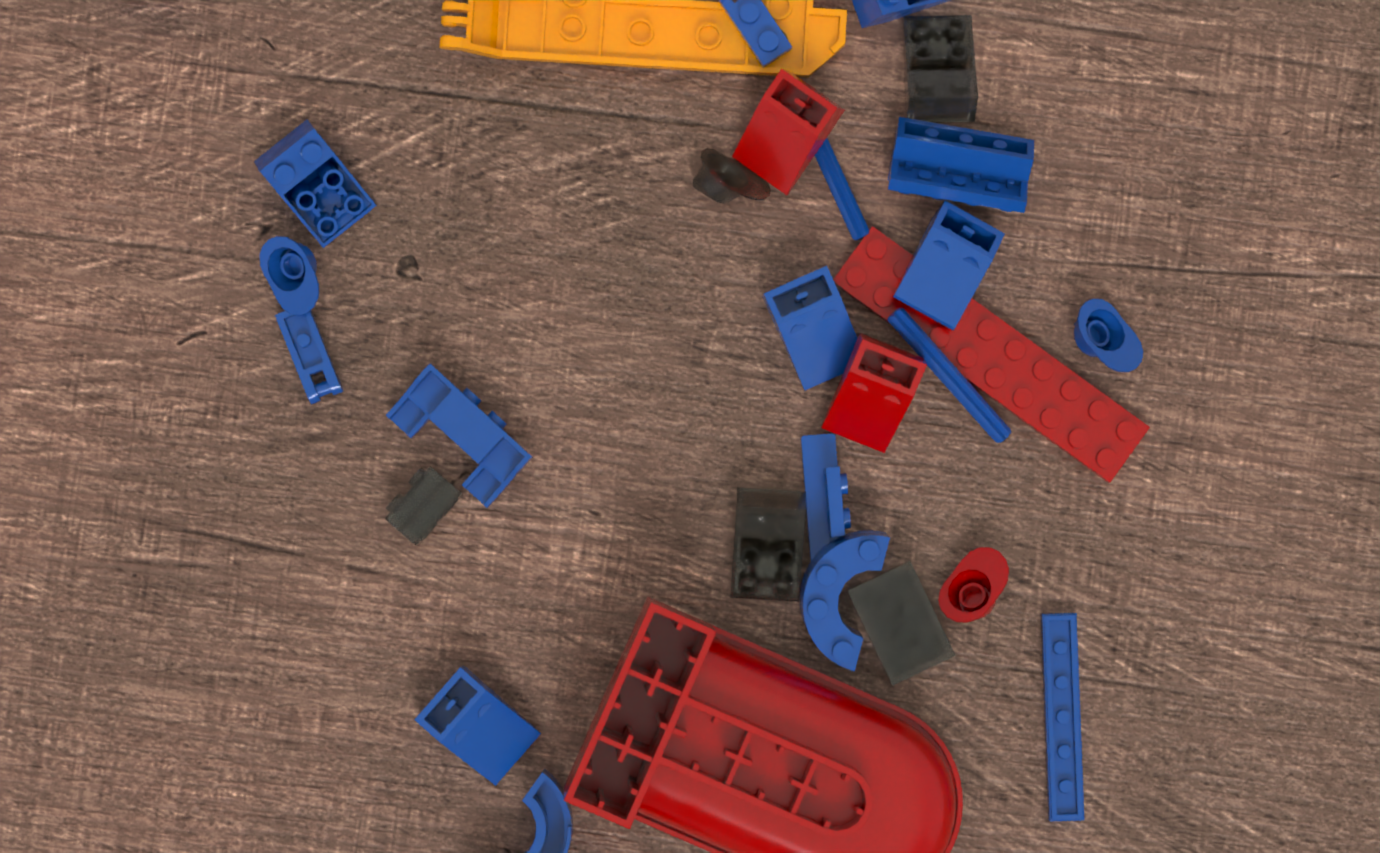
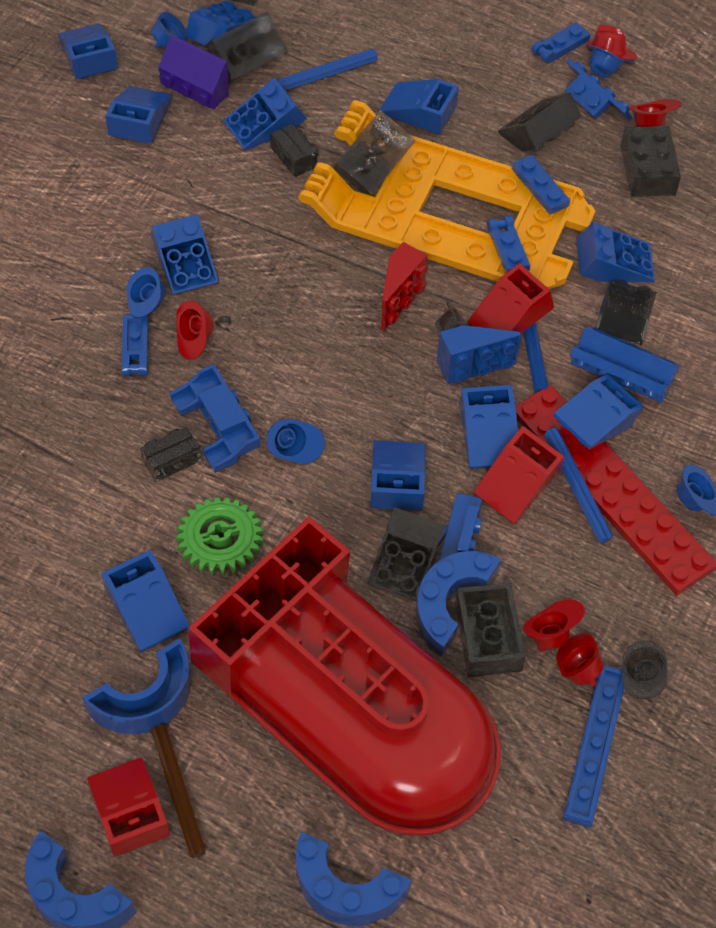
camera: 15 degrees right, 30 degrees down
(377, 305) = (193, 329): none -> red piece
(558, 583) = (219, 535): none -> bright green gear
(572, 435) = (295, 441): none -> blue piece
(627, 125) = (403, 282): none -> red slope
(718, 433) = (398, 475): none -> blue slope
(756, 221) = (475, 351): none -> blue slope
(1017, 623) = (580, 660): none -> red piece
(1098, 617) = (644, 669): none -> clear smoke piece

